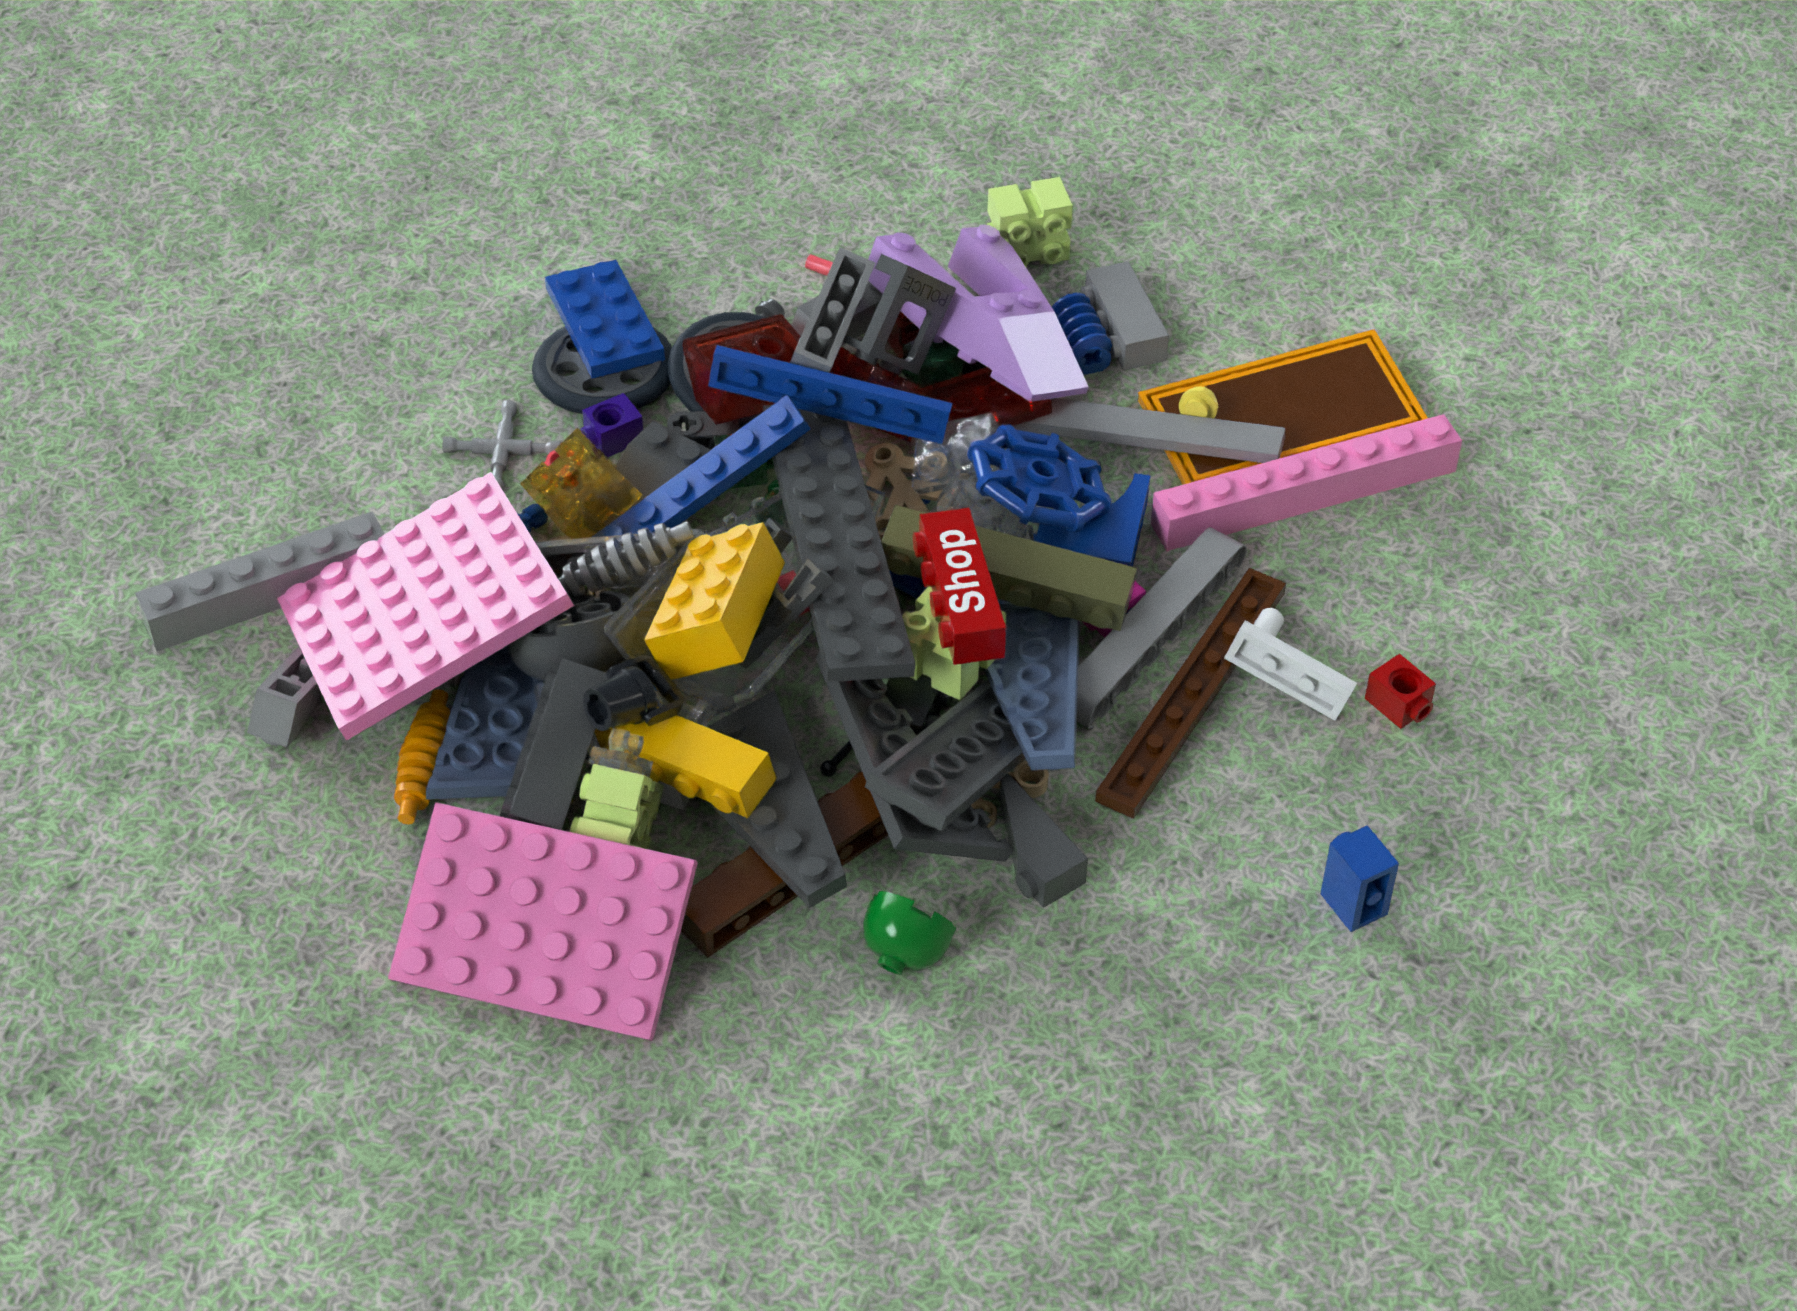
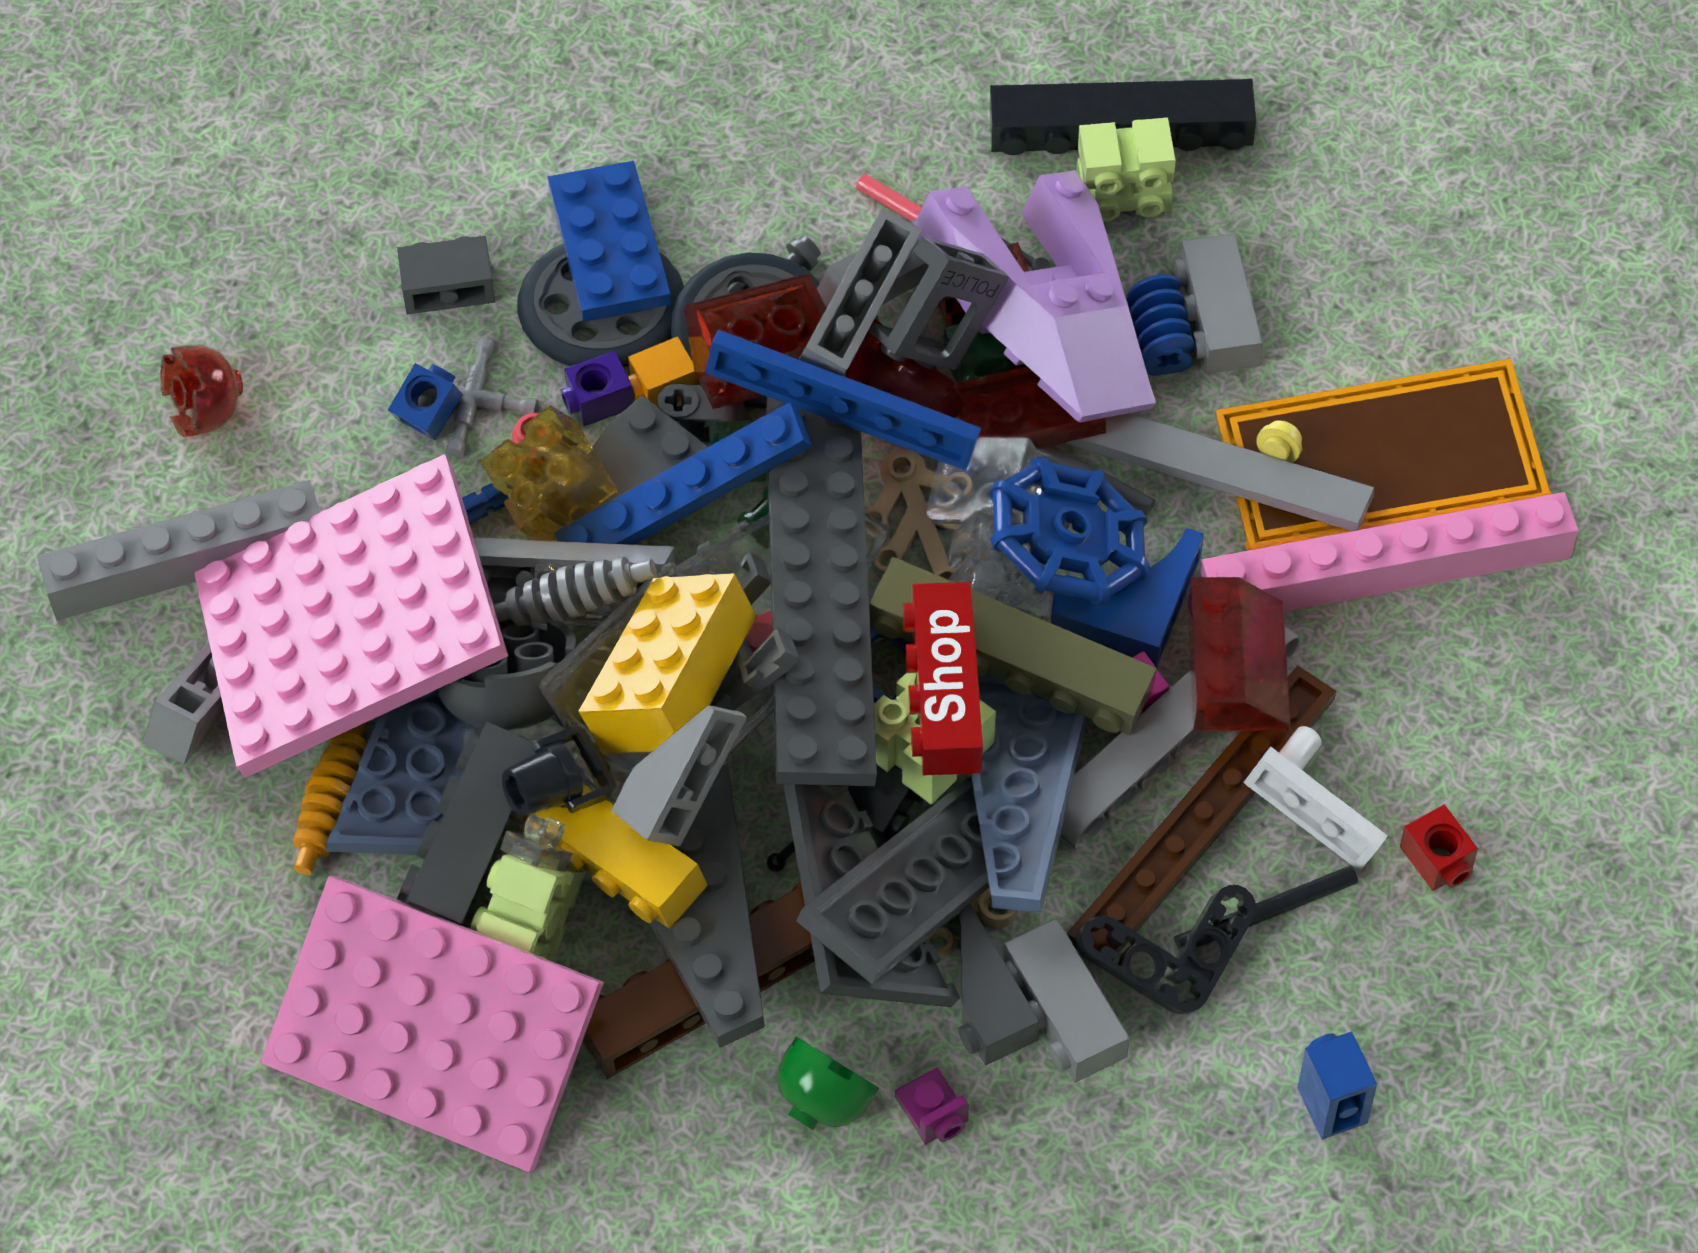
camera: 10 degrees right, 10 degrees up
(264, 450) = (200, 381): none -> clear red cylinder
(466, 462) = (428, 419): none -> blue brick
(468, 356) = (446, 274): none -> dark grey brick
(664, 401) = (660, 367): none -> light orange brick
(740, 679) = (676, 777): none -> light grey slope
(962, 197) = (1050, 114): none -> black brick
(1005, 944) = (933, 1107): none -> magenta bracket
(1118, 854) = (1066, 1001): none -> light grey brick
(1198, 559) = (1236, 656): none -> clear red slope
(1202, 805) = (1186, 964): none -> black beam
(1262, 757) = (1285, 901): none -> black bar

